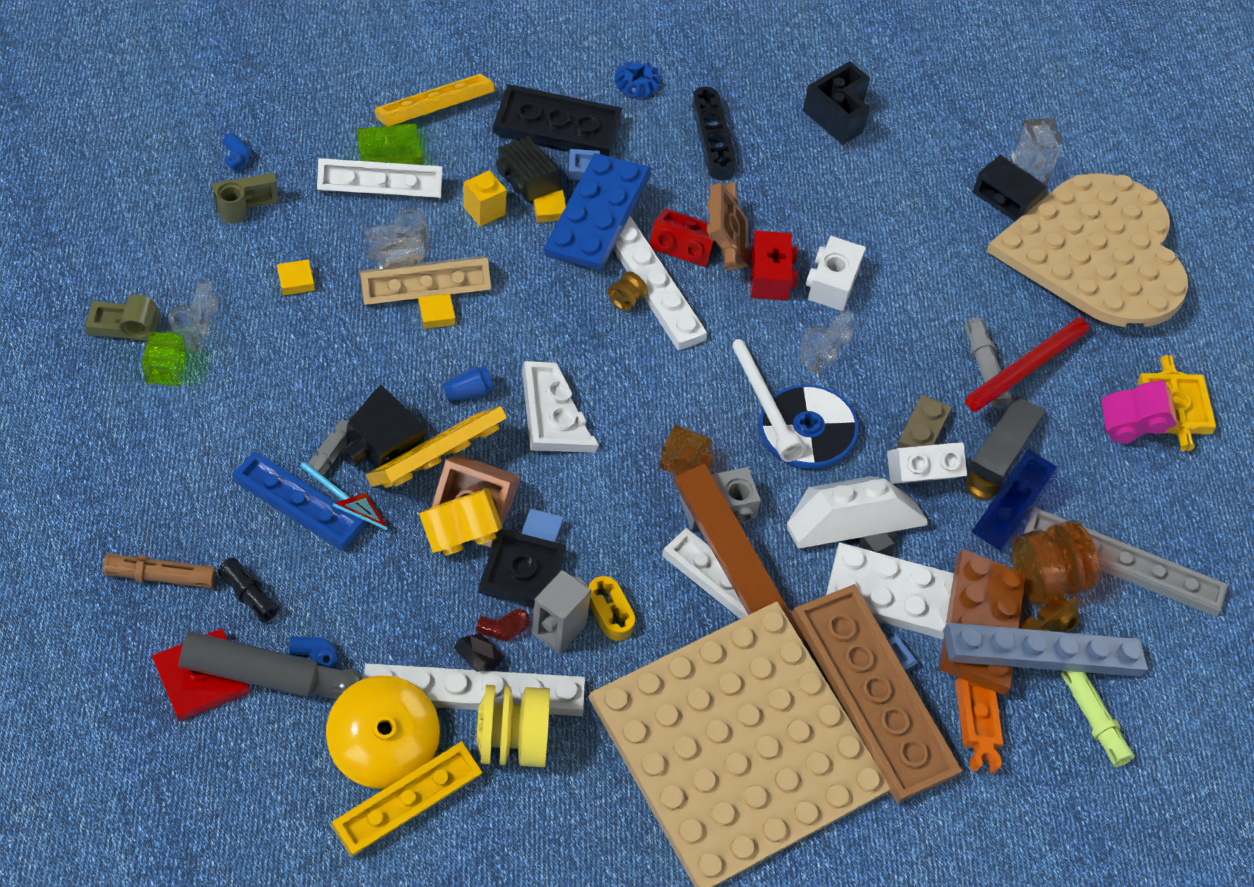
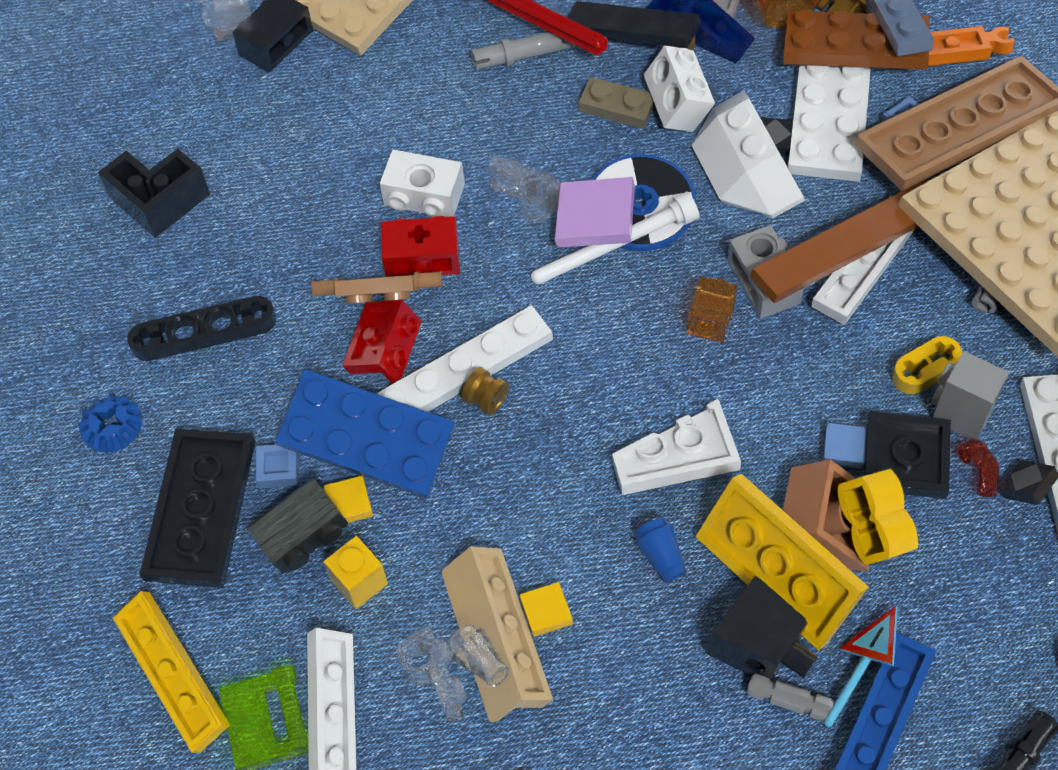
camera: 85 degrees left, 5 degrees up
(792, 381) = (595, 212): none -> lavender tile

